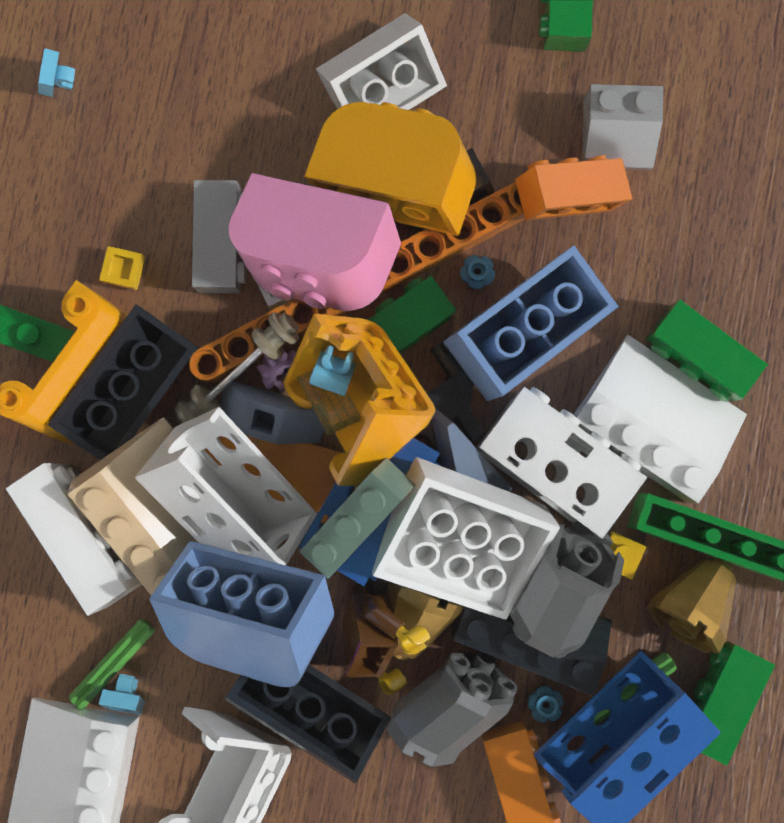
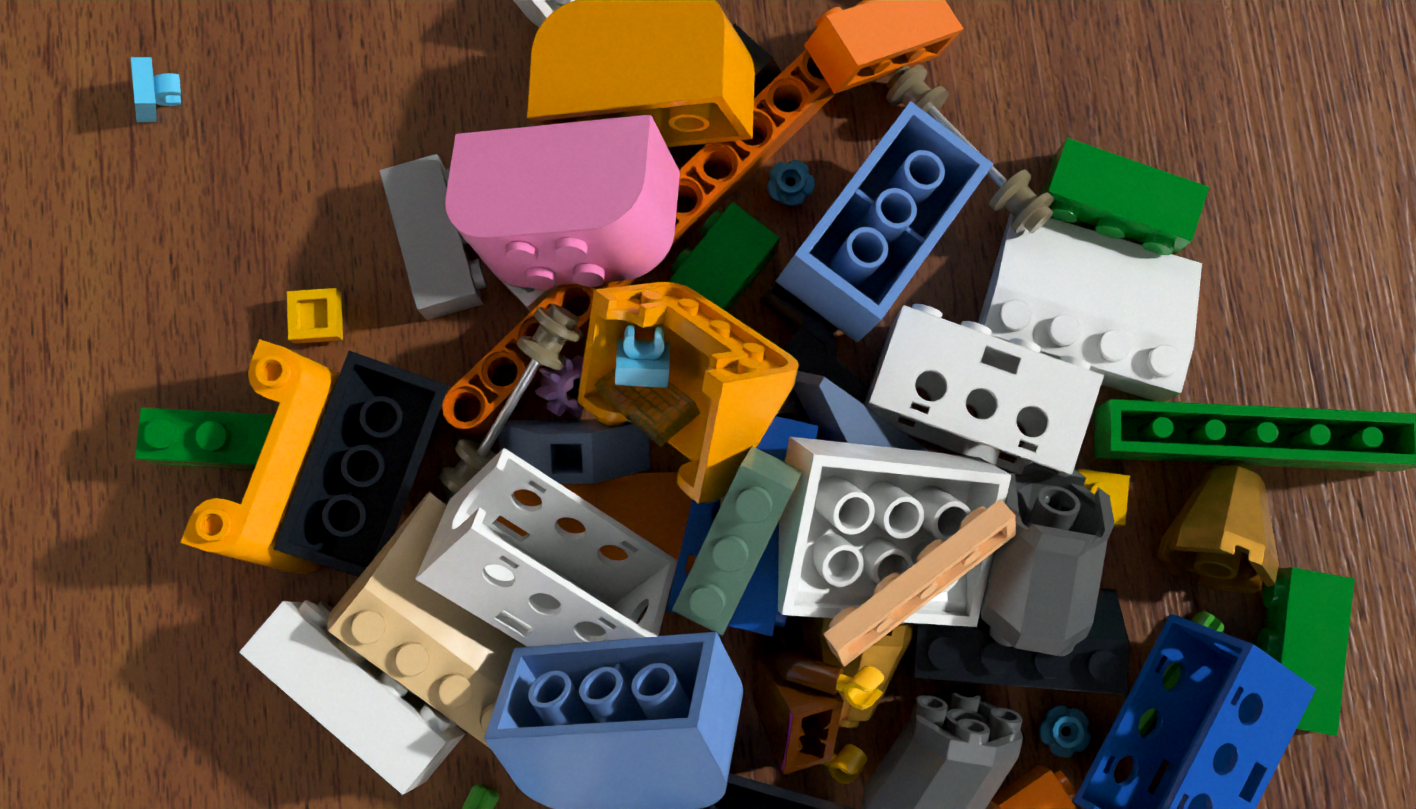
camera: 20 degrees left, 5 degrees down
(488, 576) = (936, 569): none -> light nougat plate
(636, 342) = (1014, 195): none -> dark tan axle

